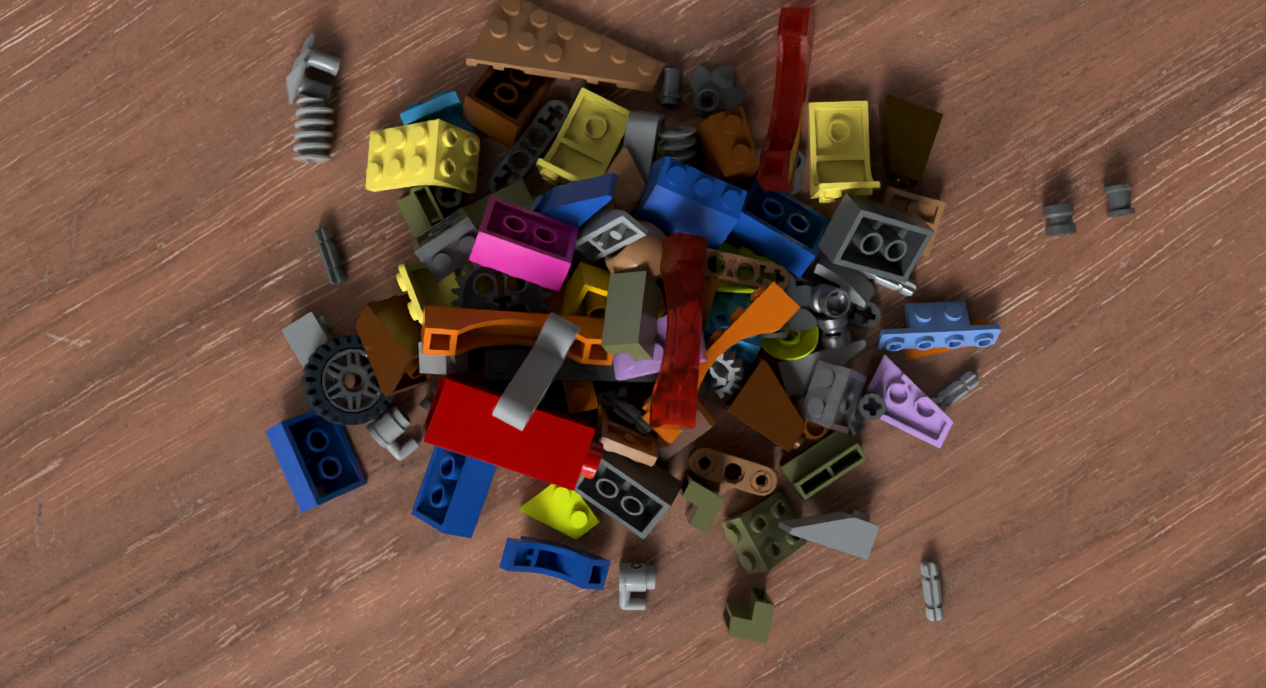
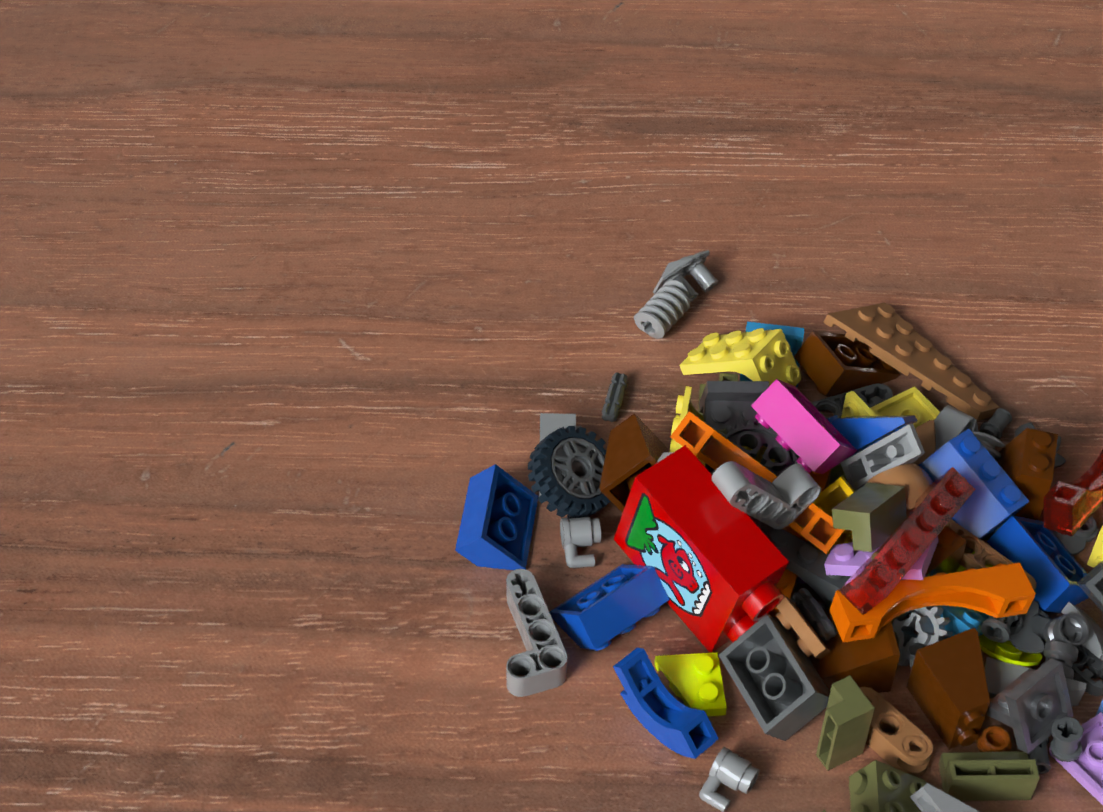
camera: 30 degrees right, 40 degrees down
(408, 549) = (533, 628): none -> light grey beam

